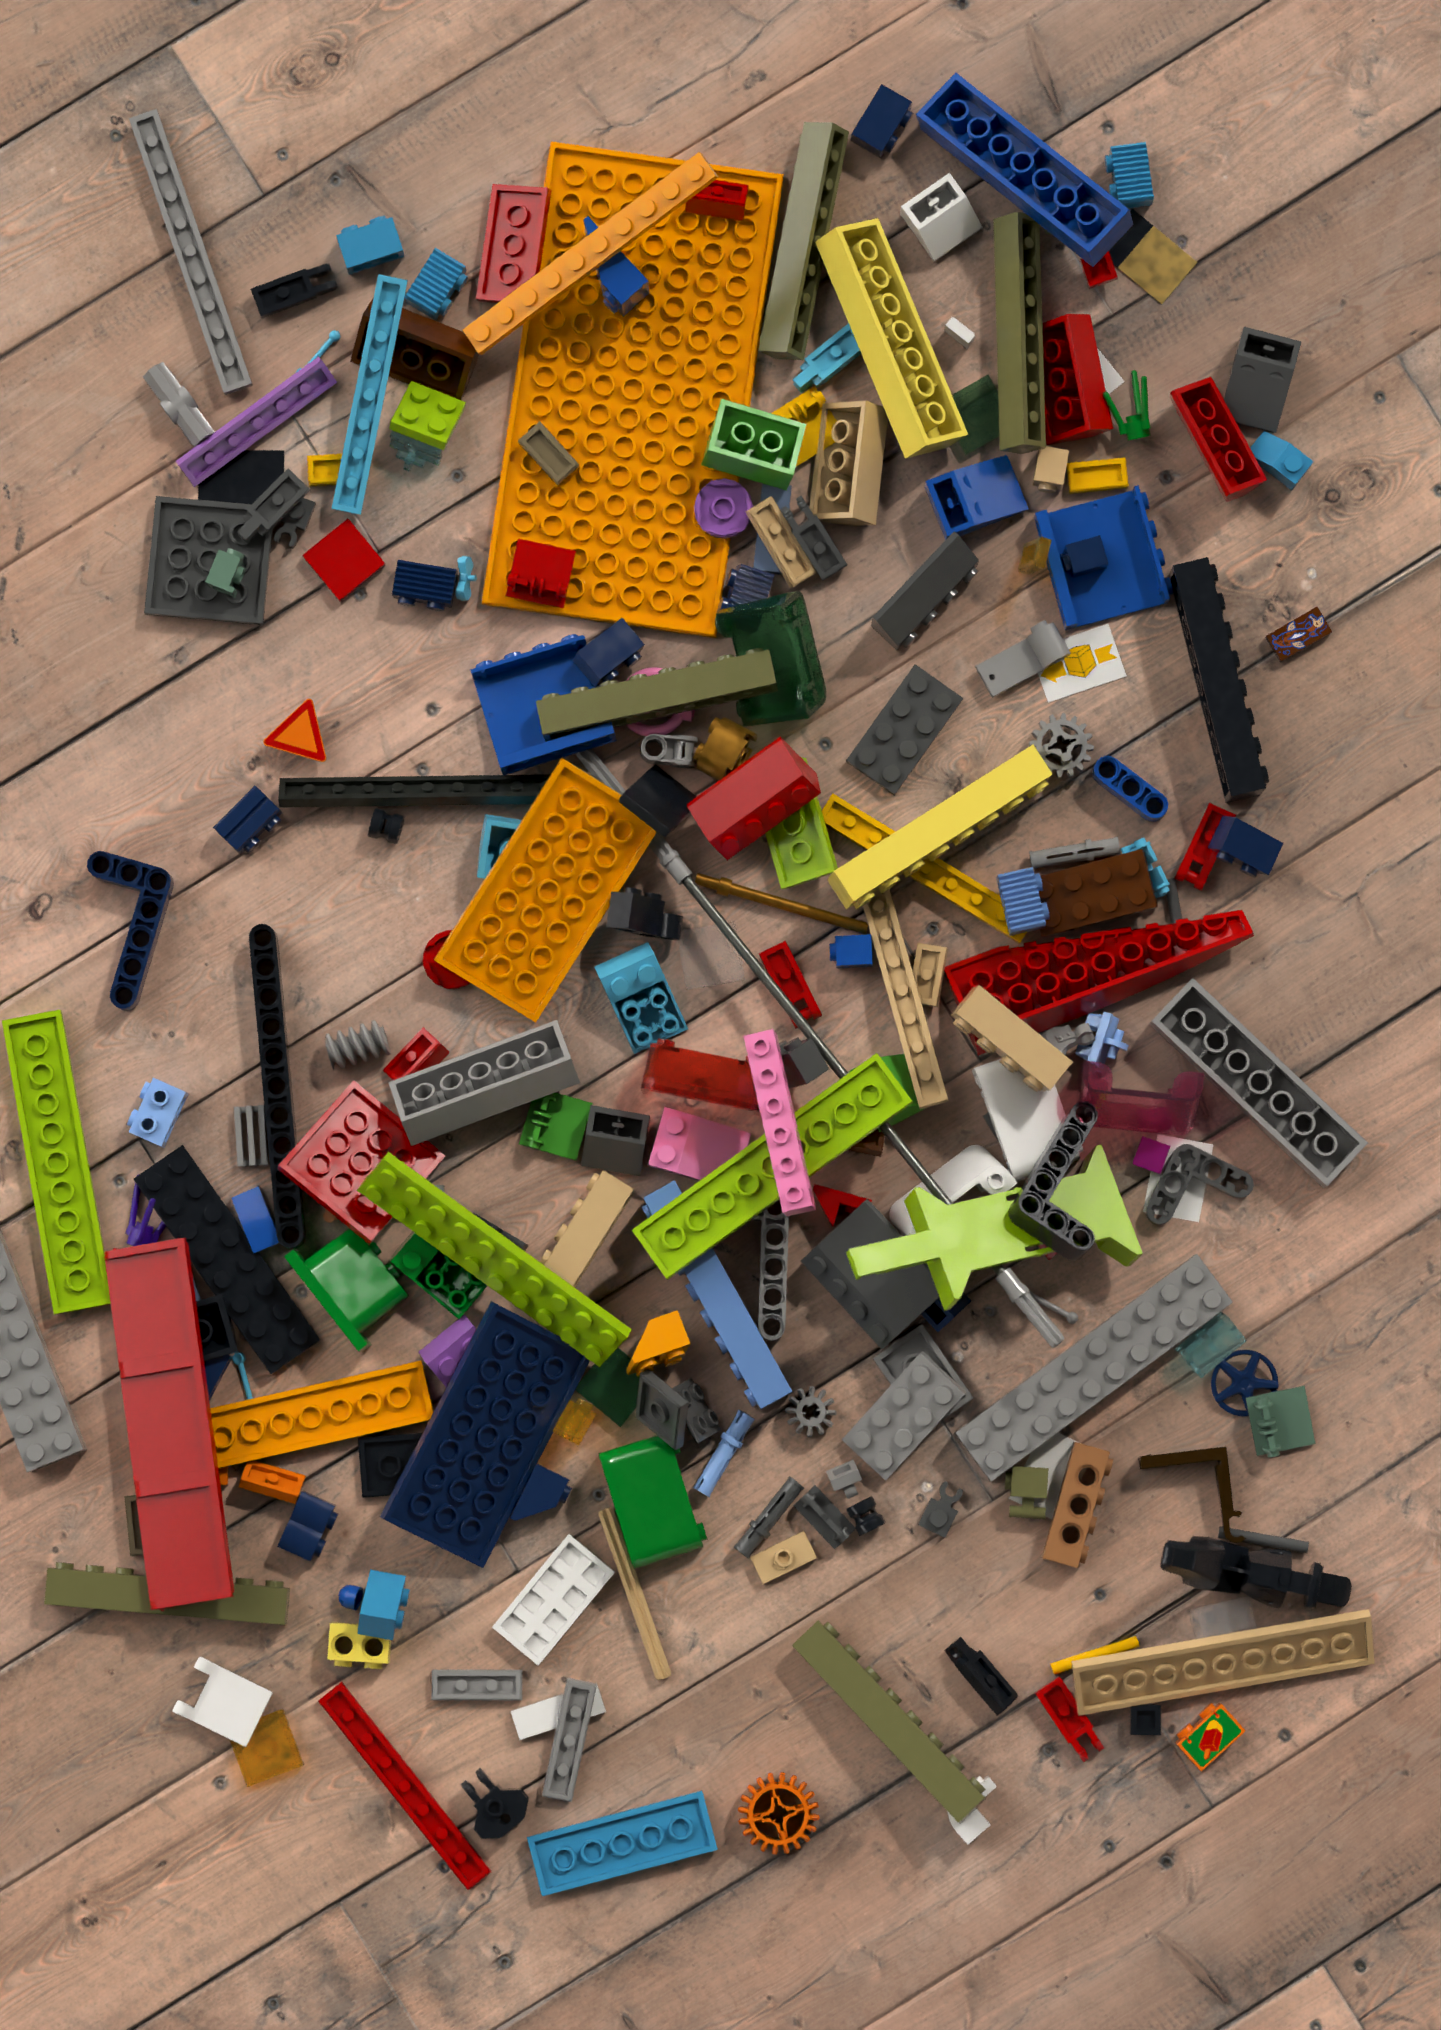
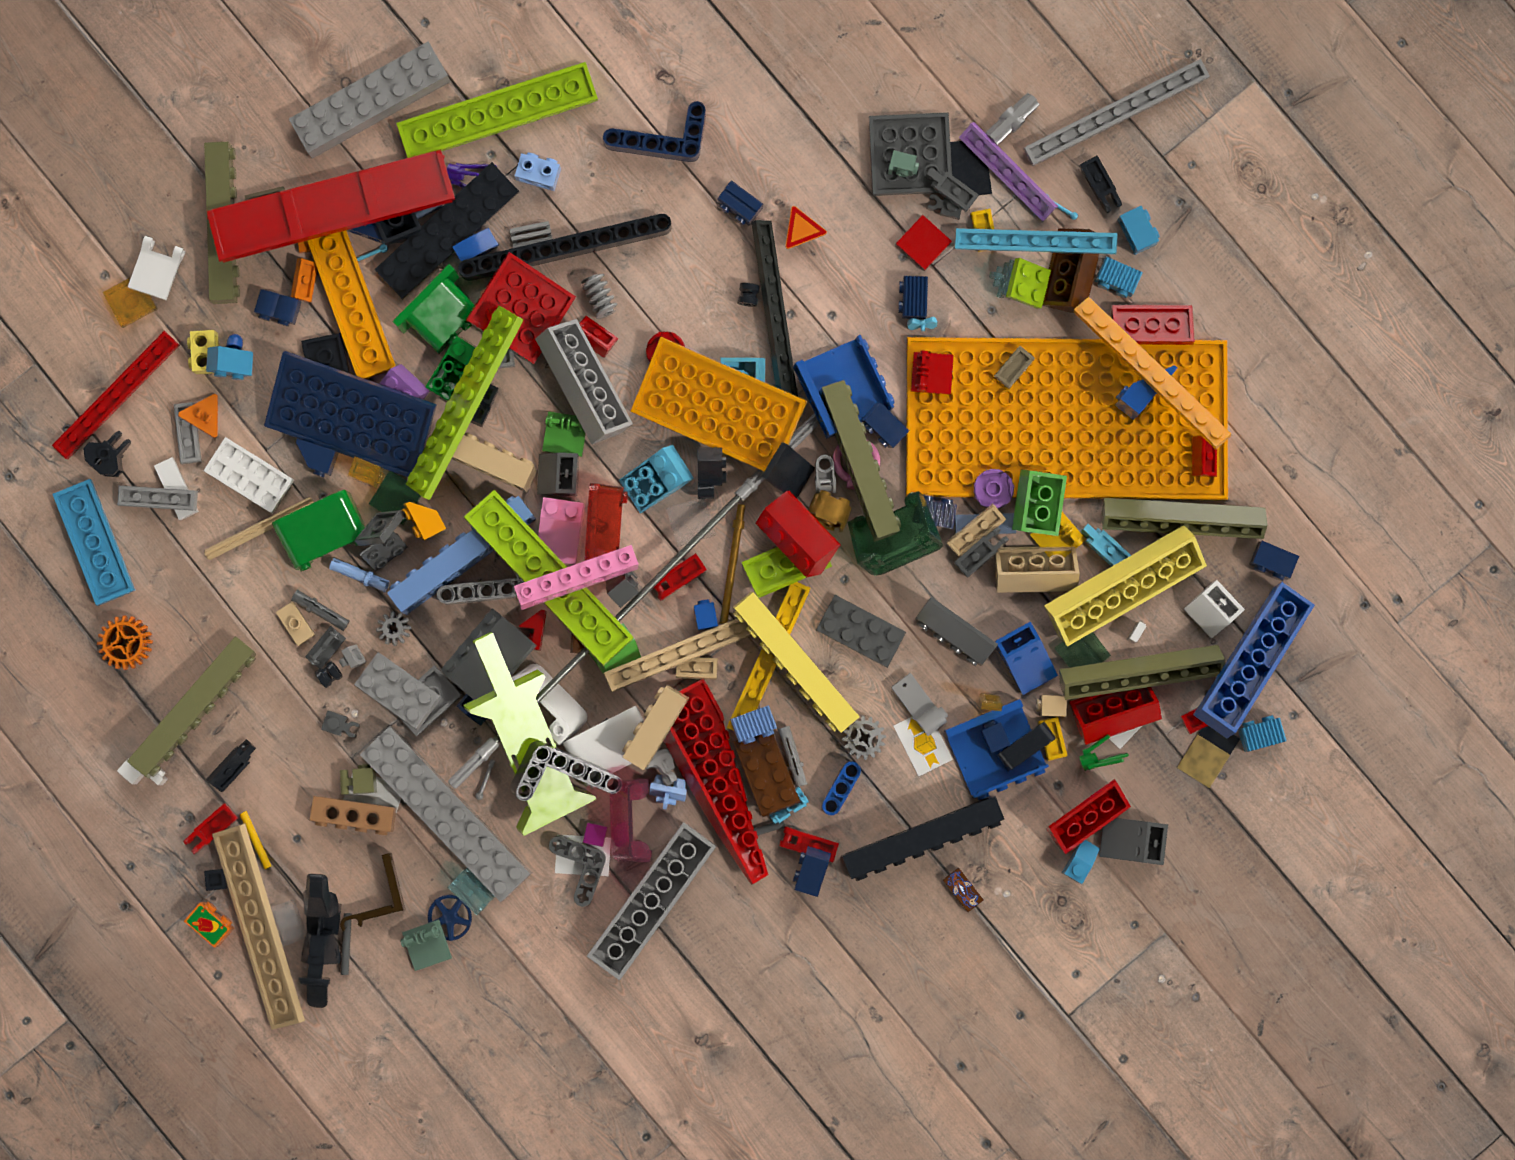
camera: 80 degrees right, 0 degrees up
(454, 1657) = (203, 415): none -> orange piece
(1104, 513) = (1026, 746): none -> black beam

